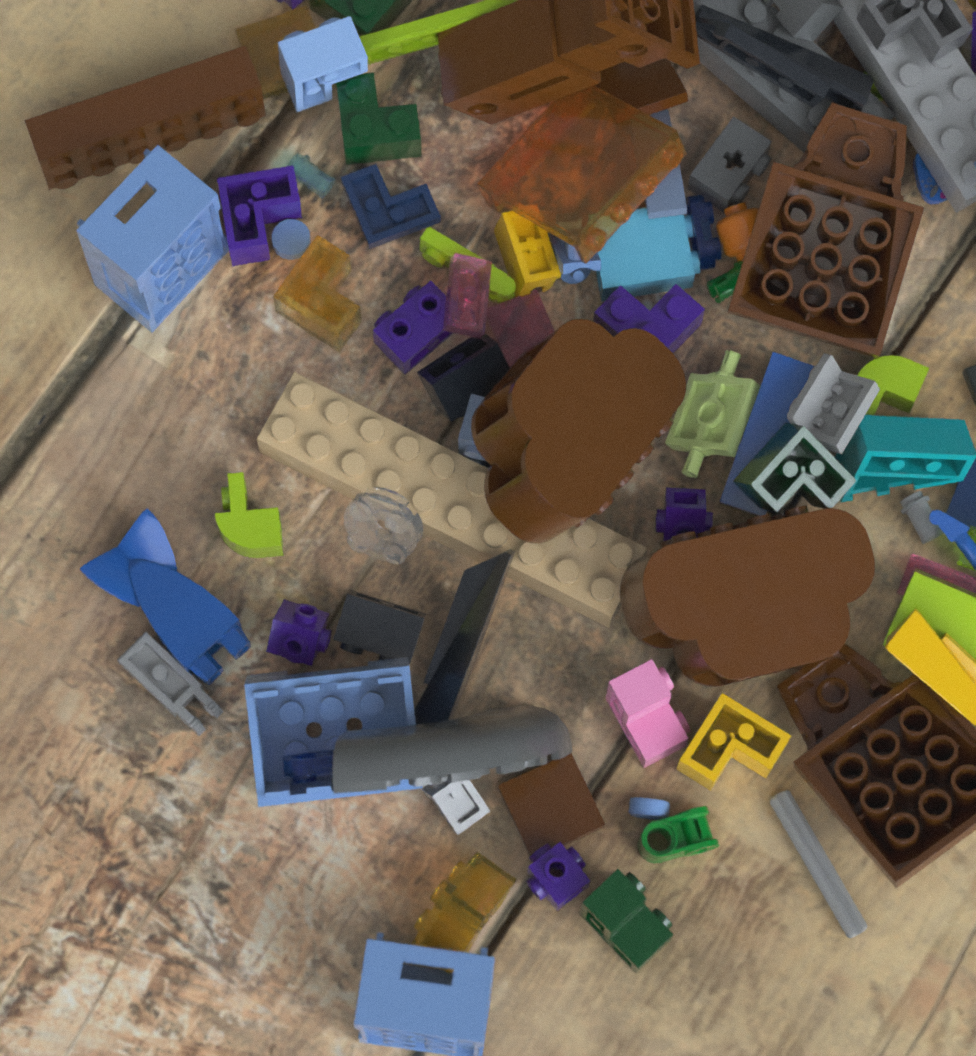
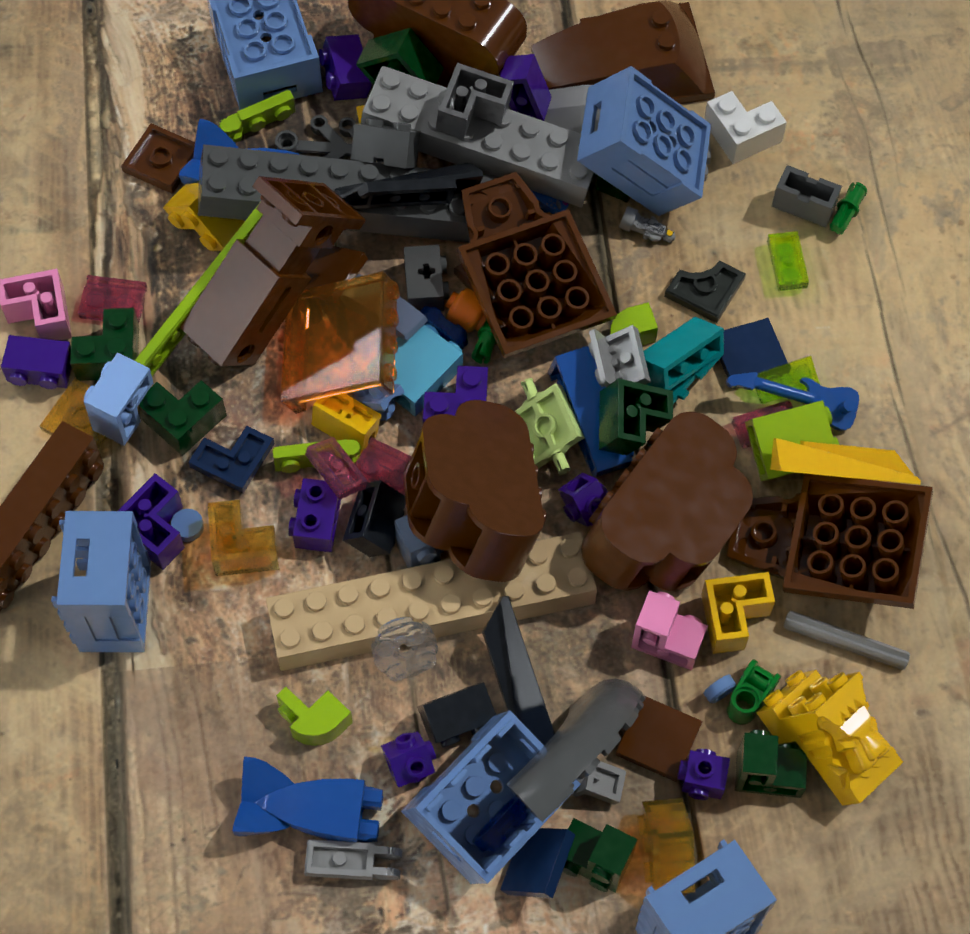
camera: 40 degrees left, 10 degrees down
(311, 175) = (174, 476): clear light blue pin -> none
(329, 828) = (538, 864): none -> dark blue tile
(391, 864) = (599, 855): none -> dark green brick
(710, 938) = (833, 731): none -> yellow brick
(918, 512) = (718, 392): light grey pin -> none

